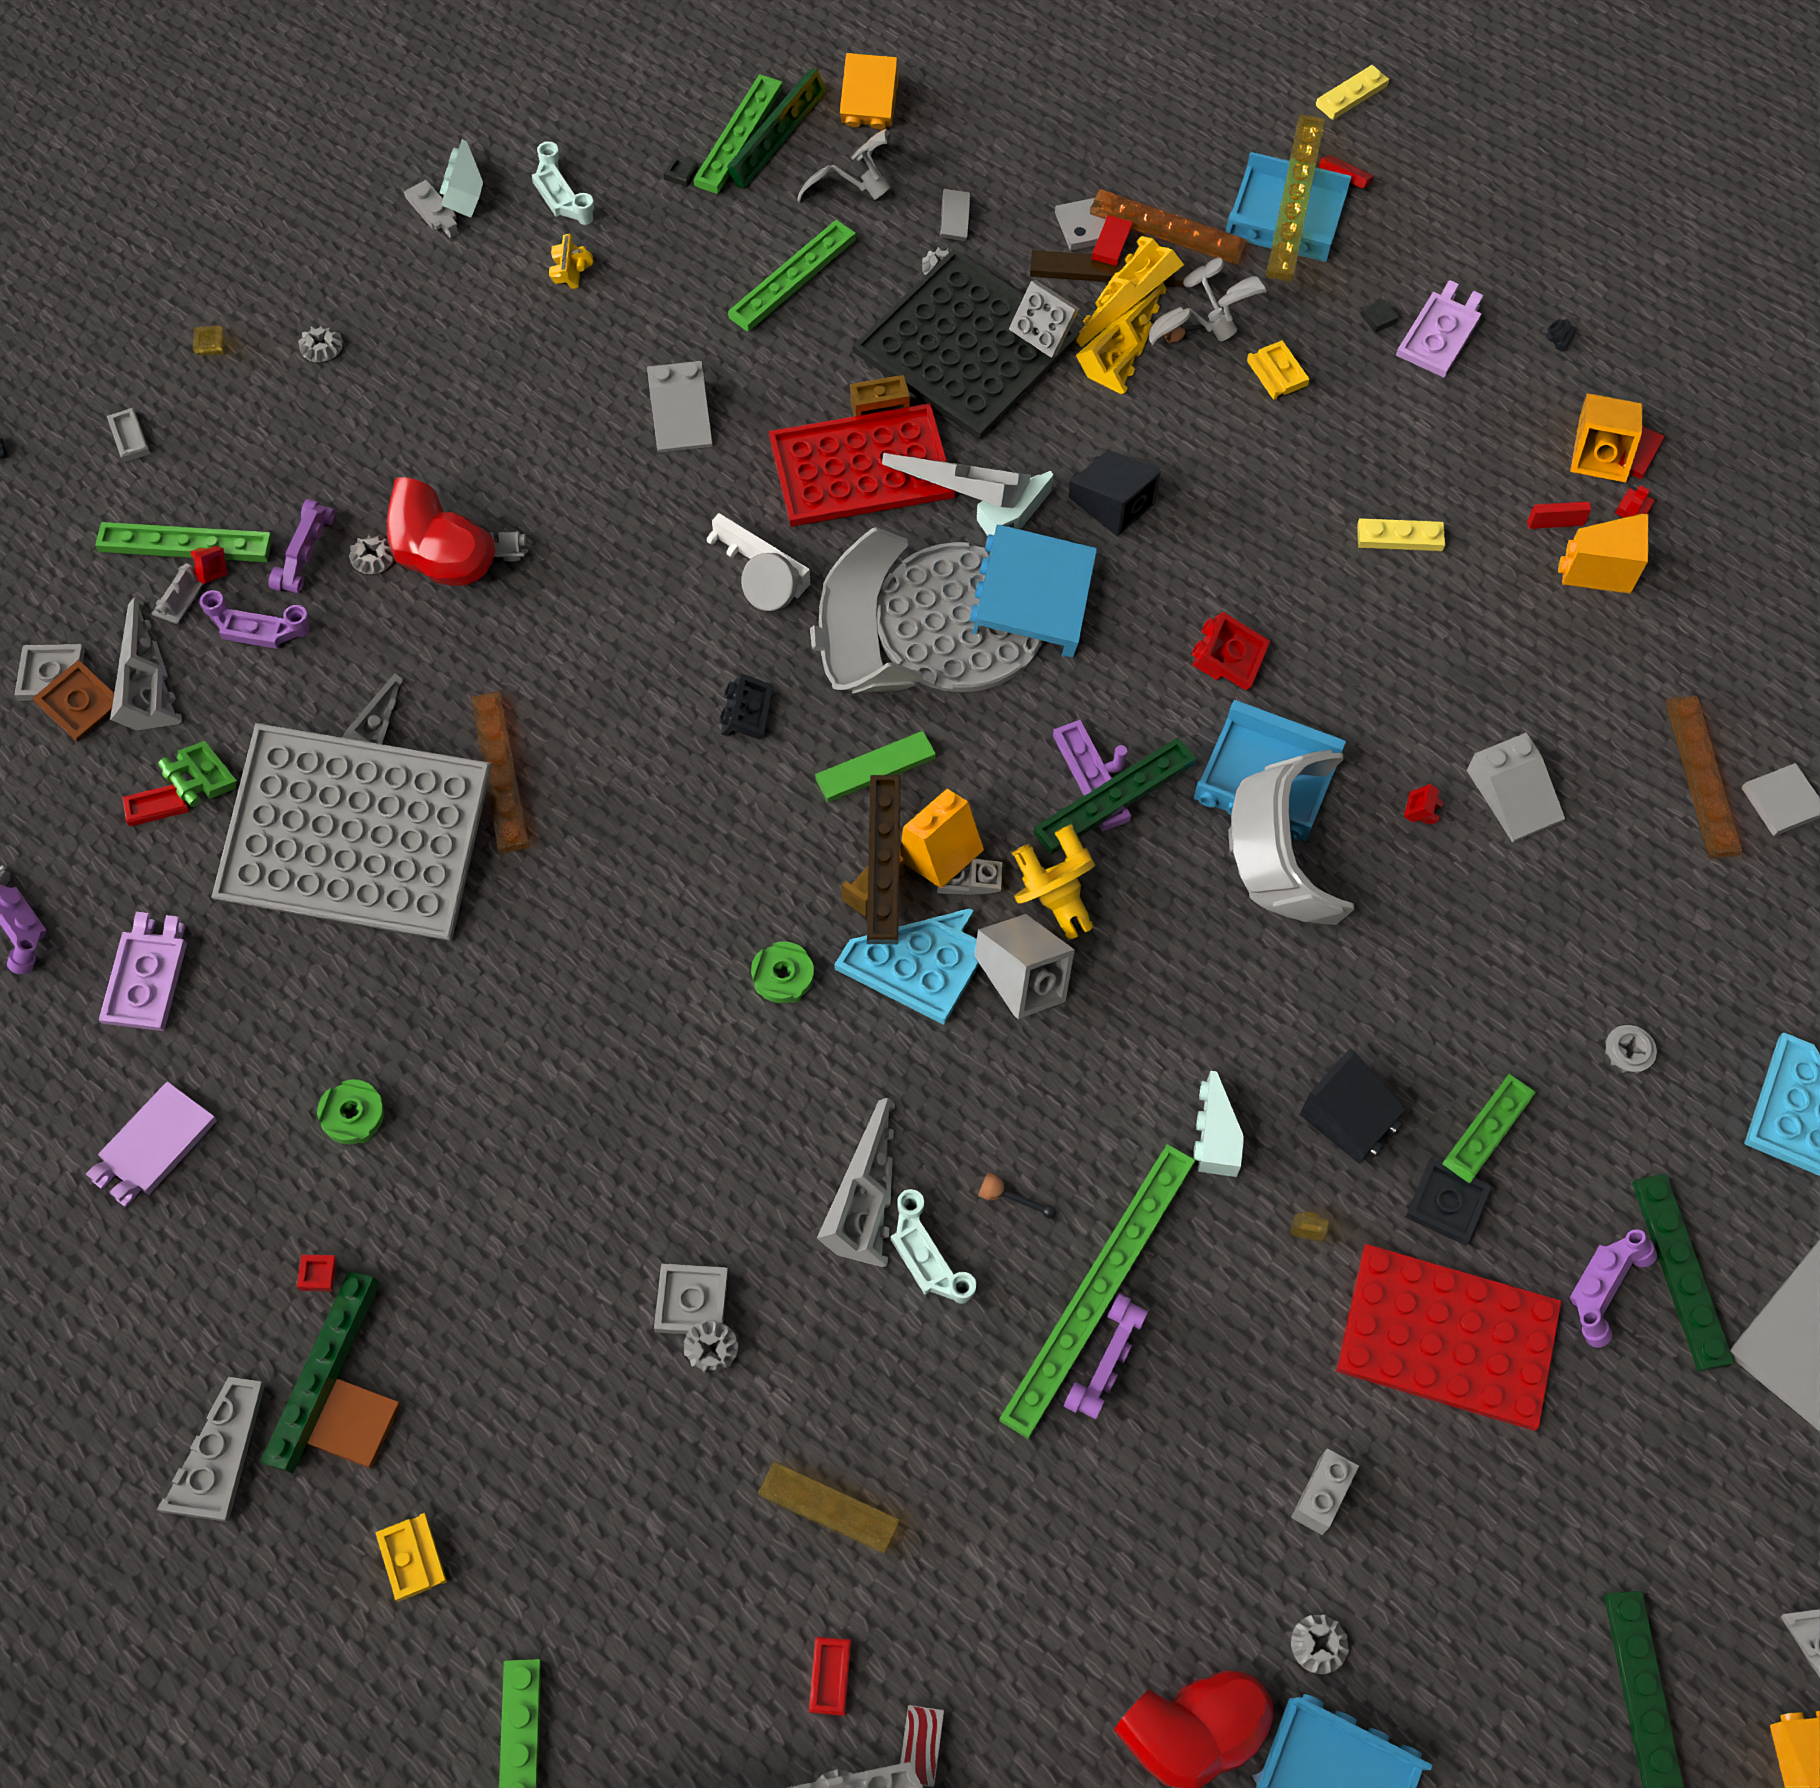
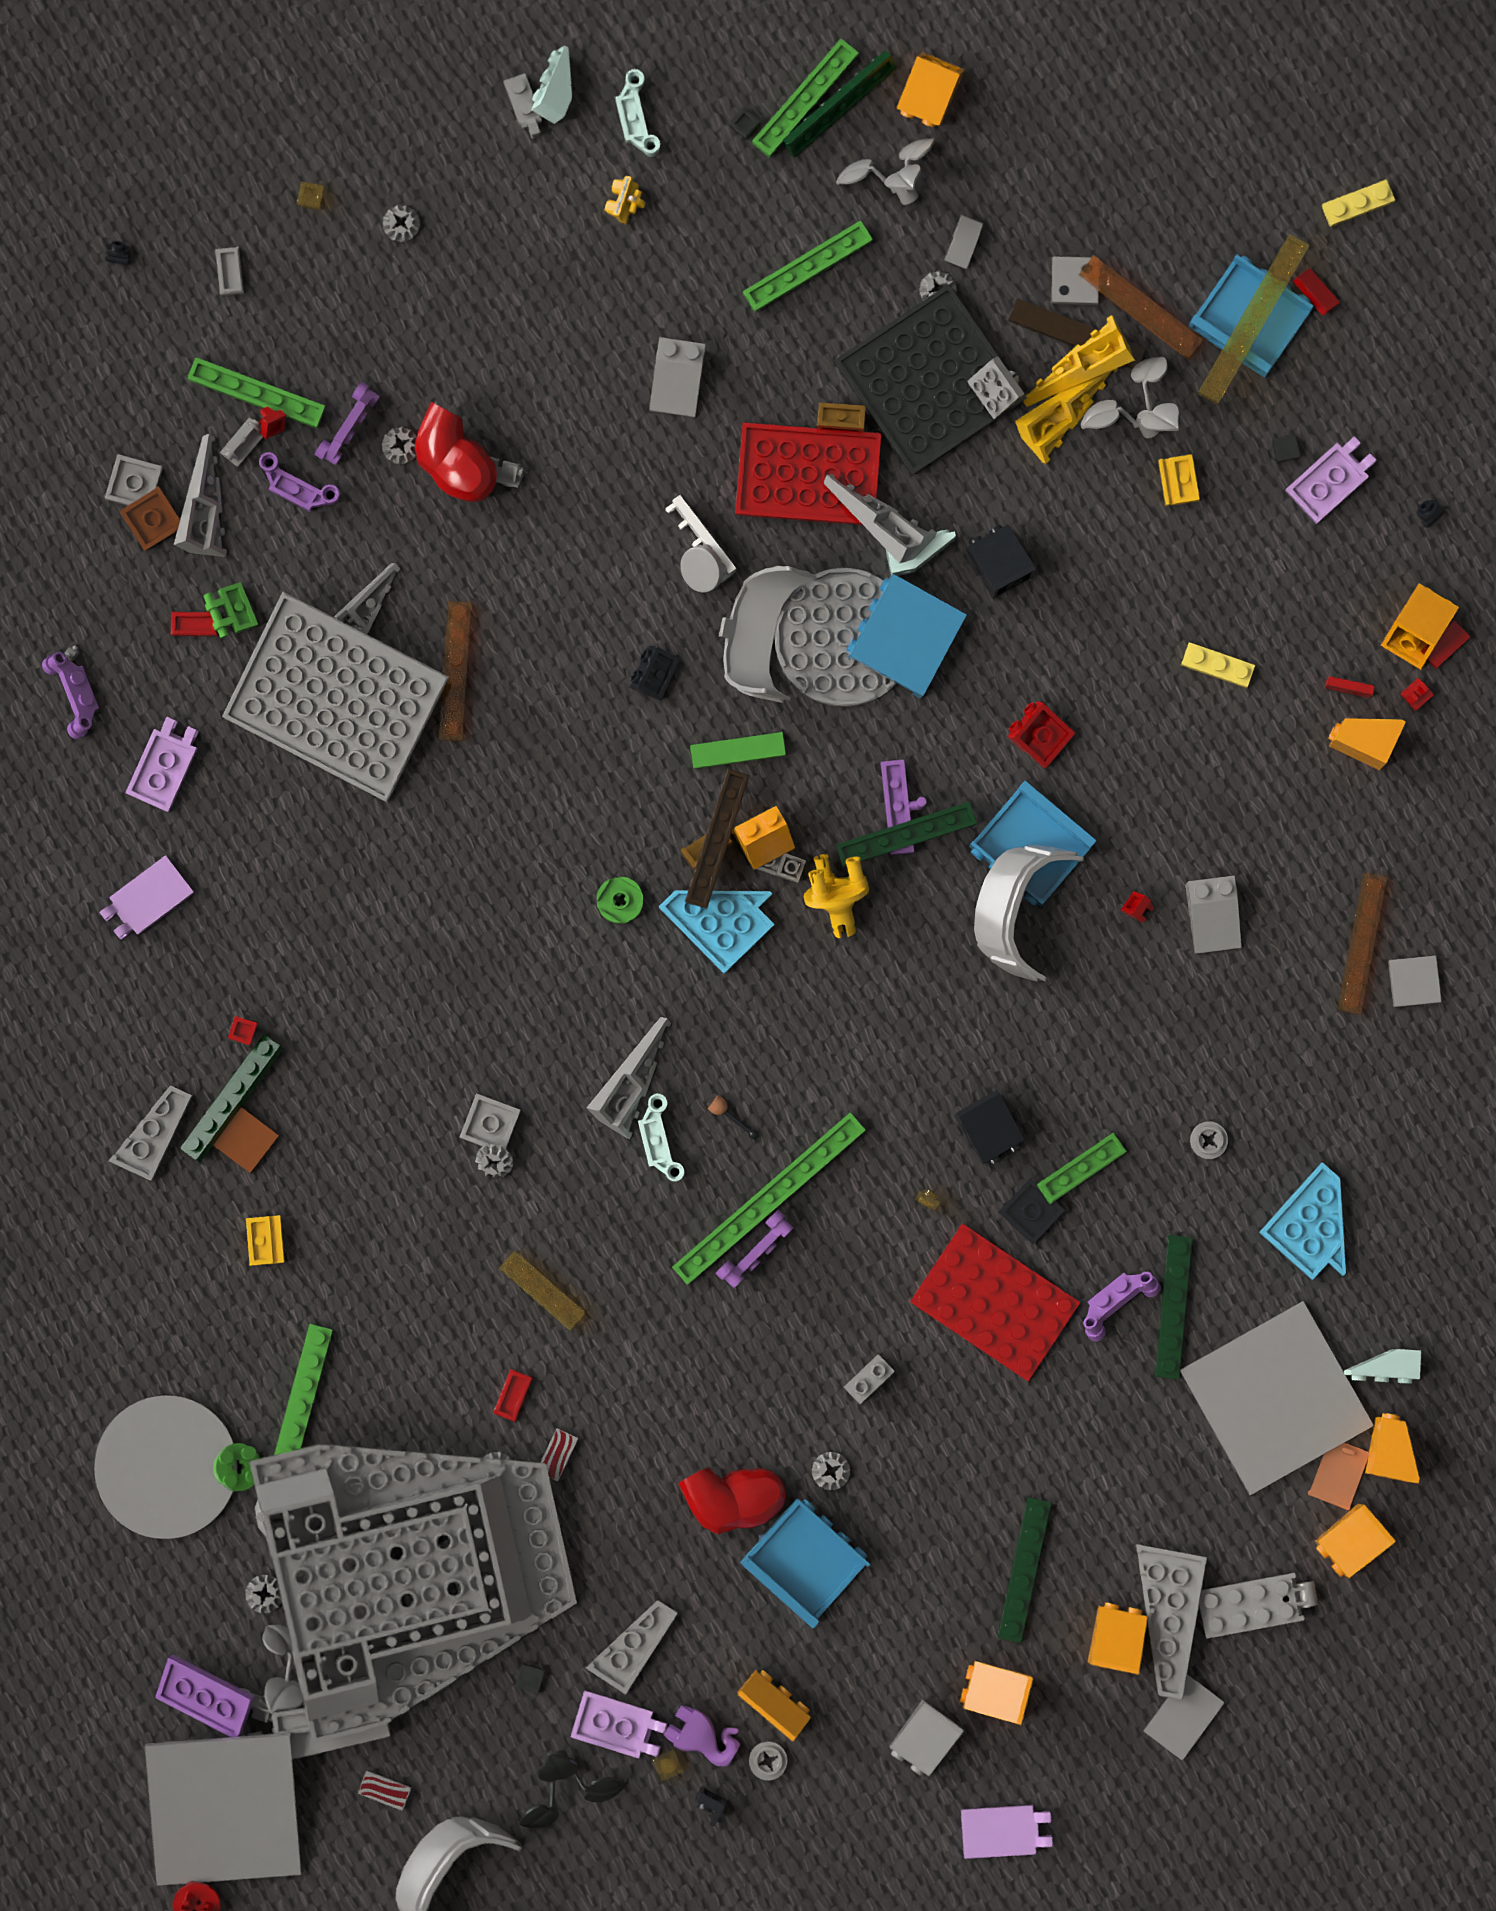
camera: 15 degrees right, 20 degrees up
(360, 1127) = (302, 914): bright green plate -> none
(1025, 964) = (794, 949): light grey slope -> none
(1112, 240) = (1086, 310): red tile -> none
(1221, 1135) = (890, 1117): light aqua slope -> none

